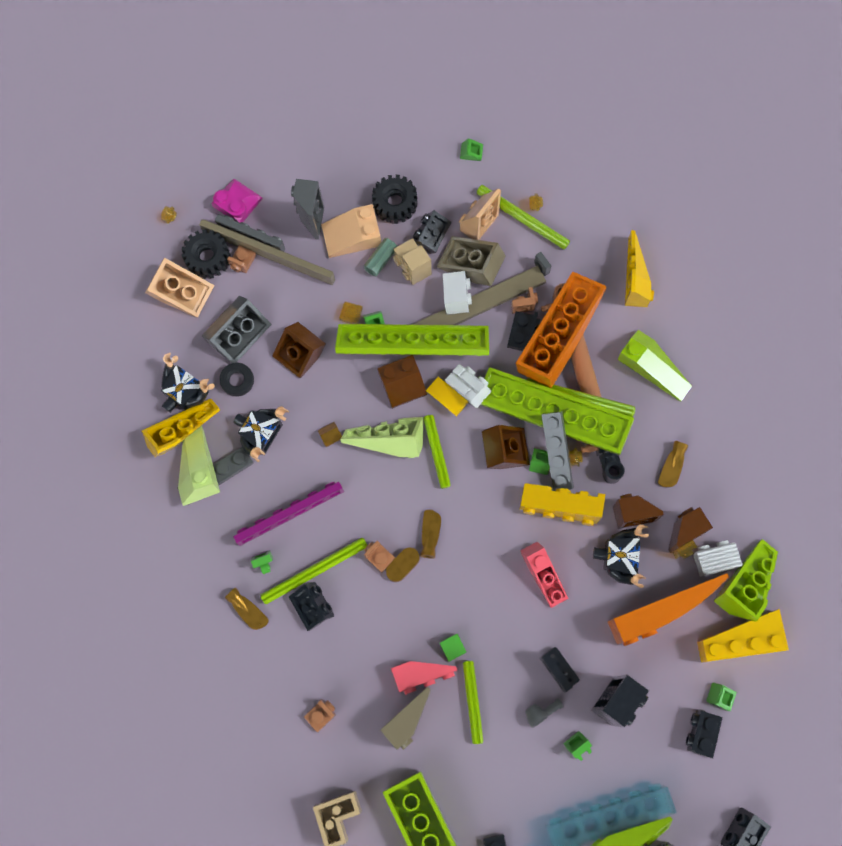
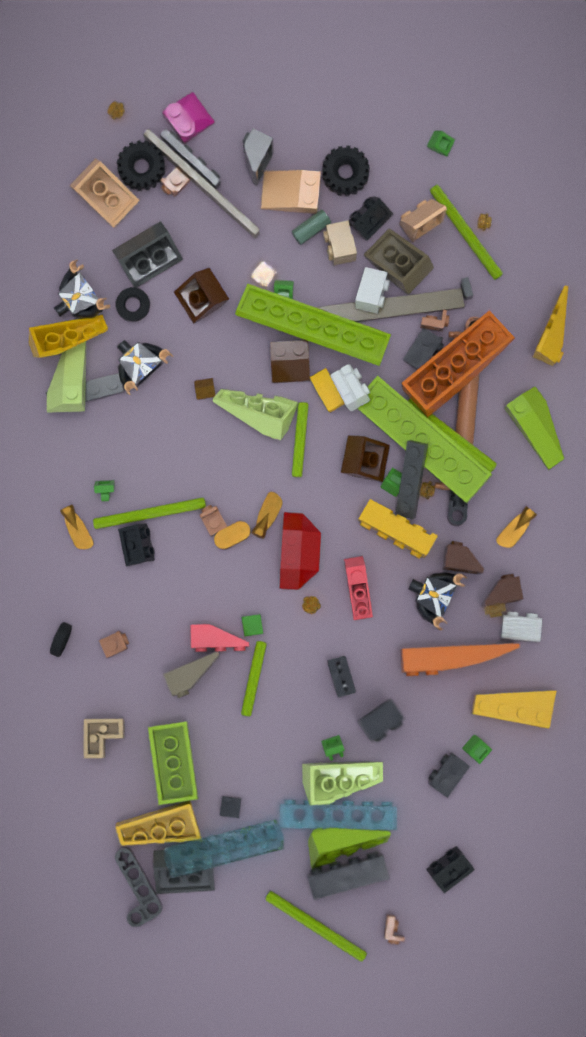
camera: 15 degrees right, 10 degrees up
(264, 729) = (60, 639): none -> black tyre
(282, 516) = (134, 452): magenta plate -> none
(473, 558) = (299, 551): none -> red wedge
(504, 607) = (311, 604): none -> clear yellow plate
(536, 715) = (306, 708): dark grey bar -> none
(592, 781) = (336, 780): none -> yellowish green wedge
(749, 585) = (538, 663): lime wedge -> none

